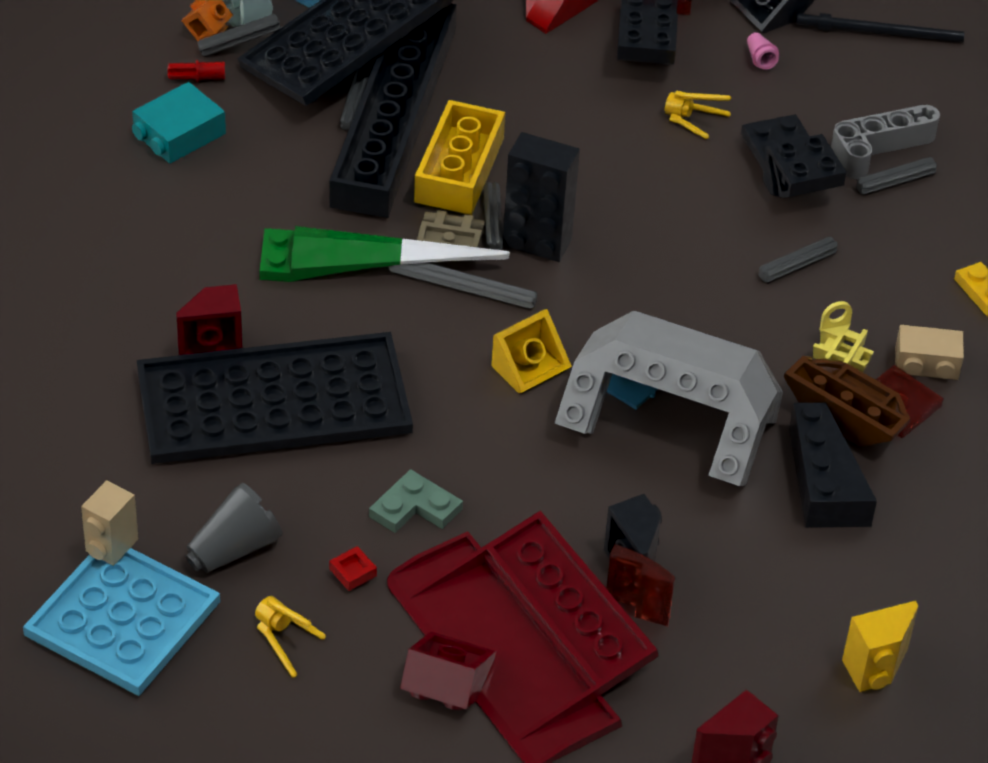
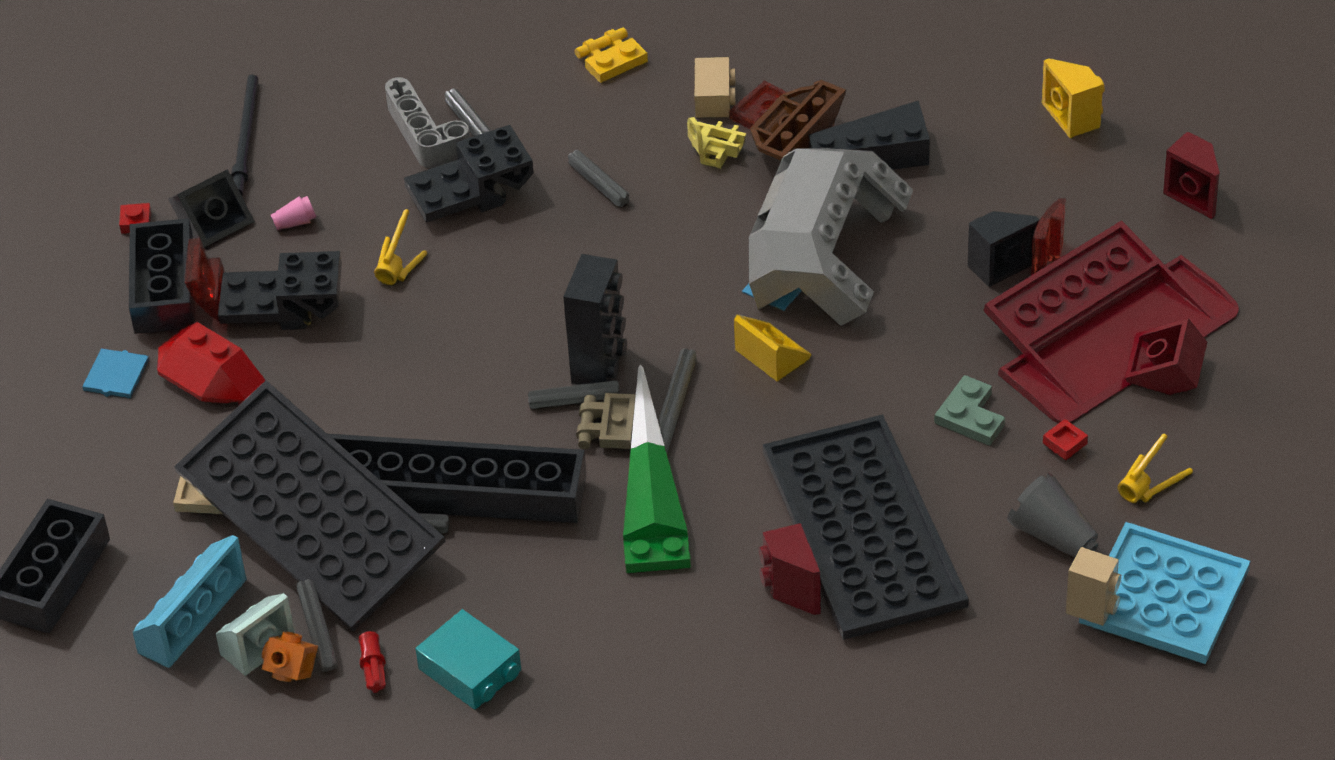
camera: 90 degrees left, 0 degrees up
(459, 157) = (502, 412): yellow brick -> none

